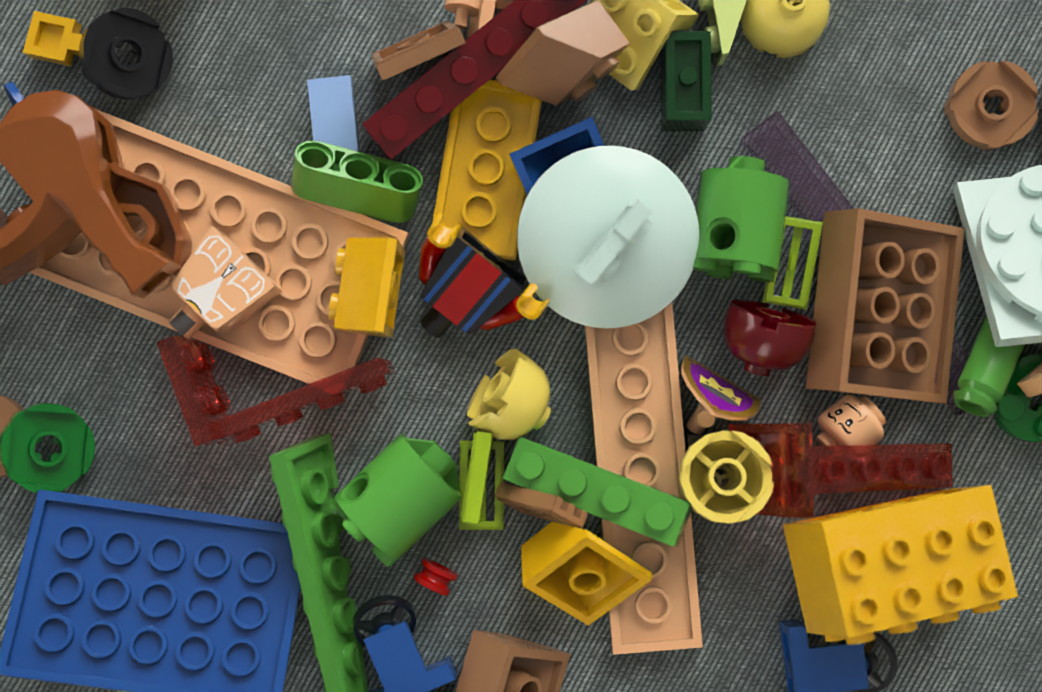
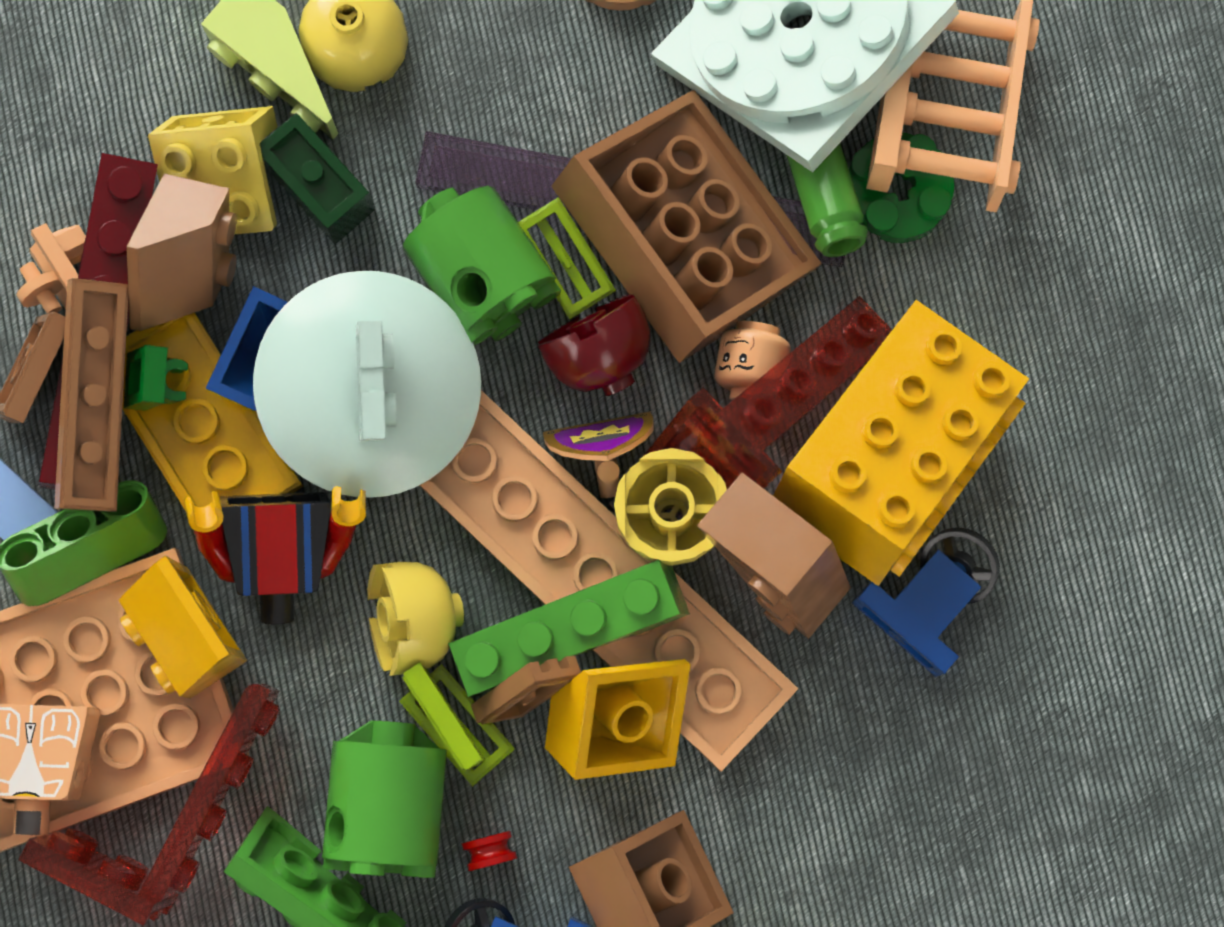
camera: 45 degrees left, 5 degrees down
(438, 99) = (91, 395): none -> medium nougat tile
(480, 116) = (147, 378): none -> green tile
(764, 562) = (777, 555): none -> medium nougat wedge

